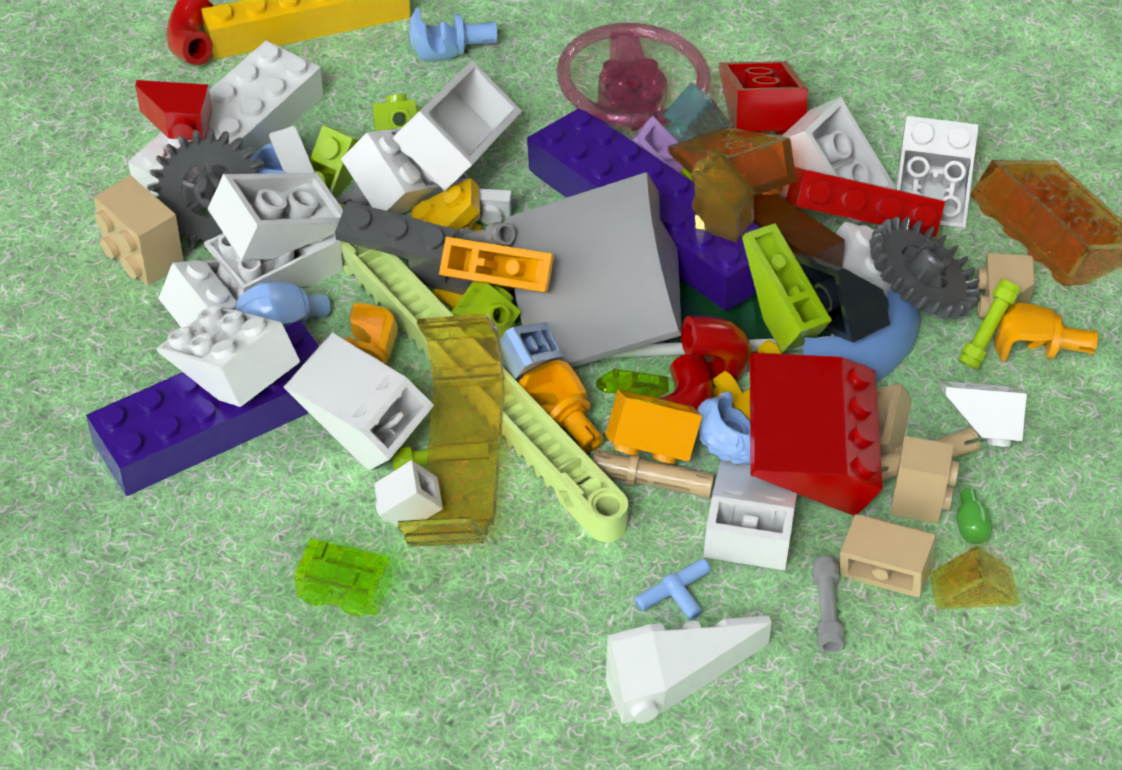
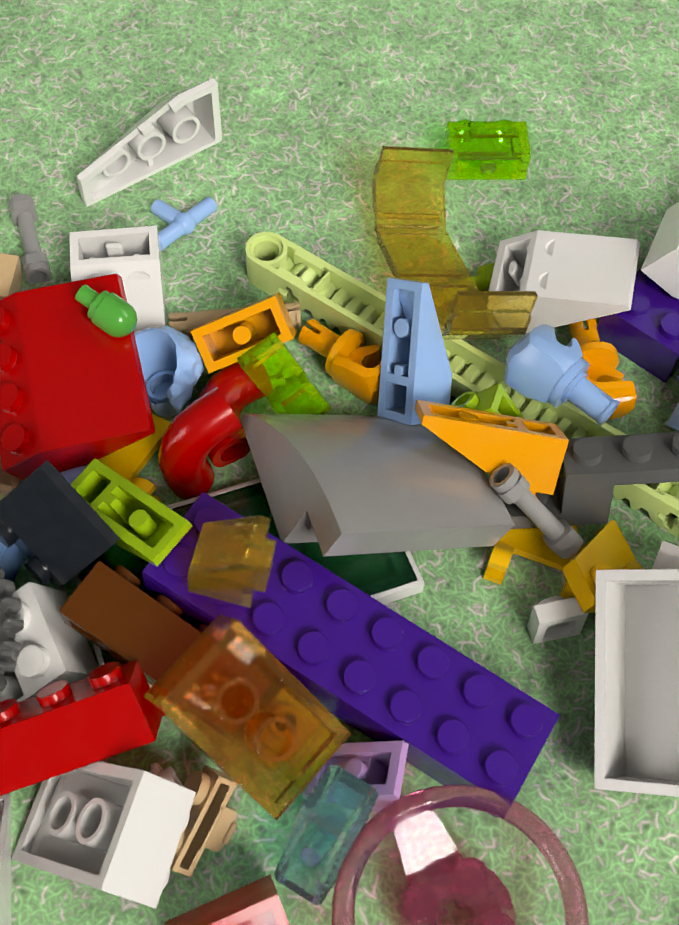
camera: 160 degrees right, 10 degrees up
(407, 306) = (555, 374): none -> light blue piece
(408, 494) = (464, 220): white brick -> none
(769, 426) = (108, 311): none -> bright green cylinder

